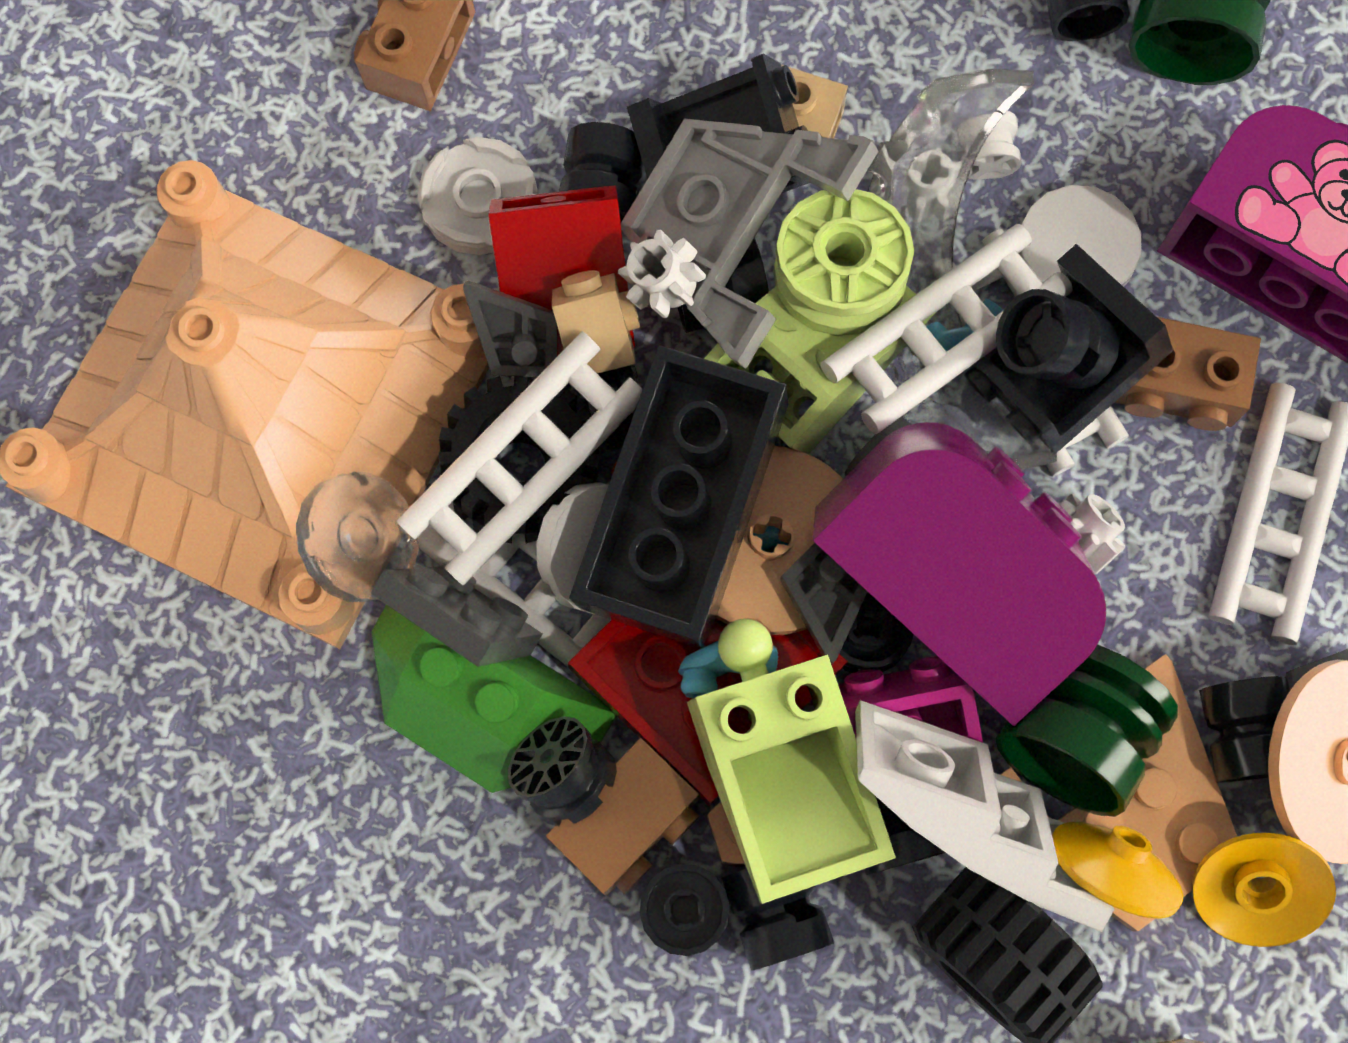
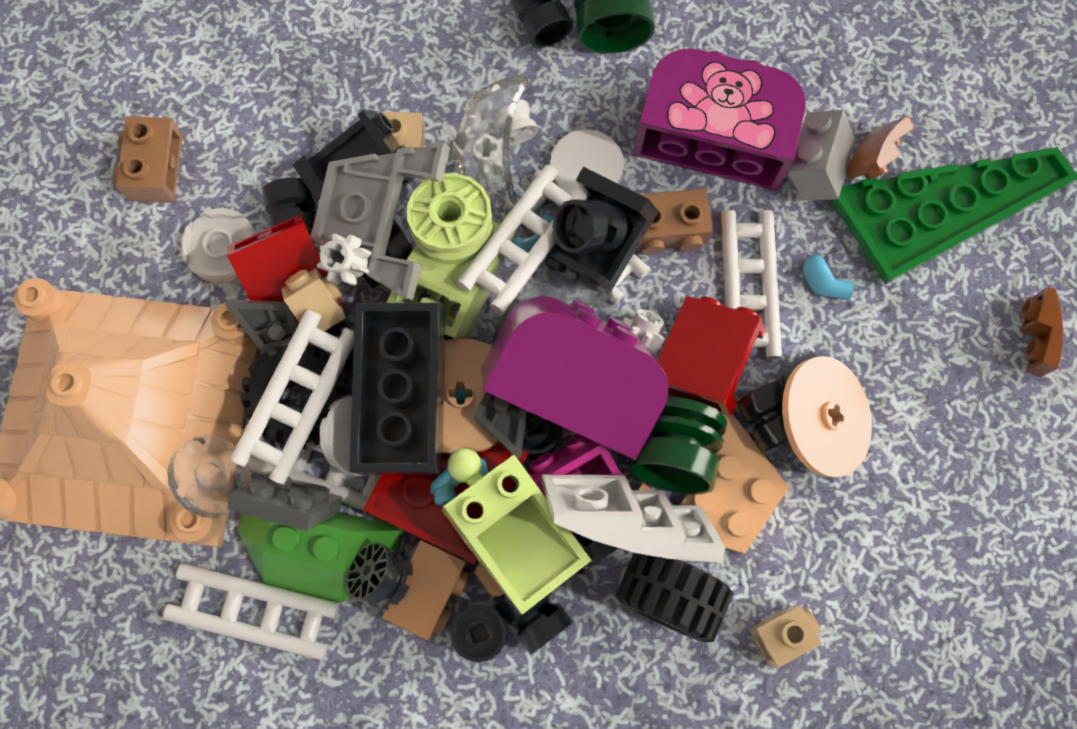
camera: 25 degrees left, 0 degrees up
(361, 800) = (237, 589): none -> white bar
(1117, 868) = (720, 522): yellow dish -> none
(1186, 595) = (709, 351): none -> red panel
(1268, 910) = (807, 518): yellow dish -> none

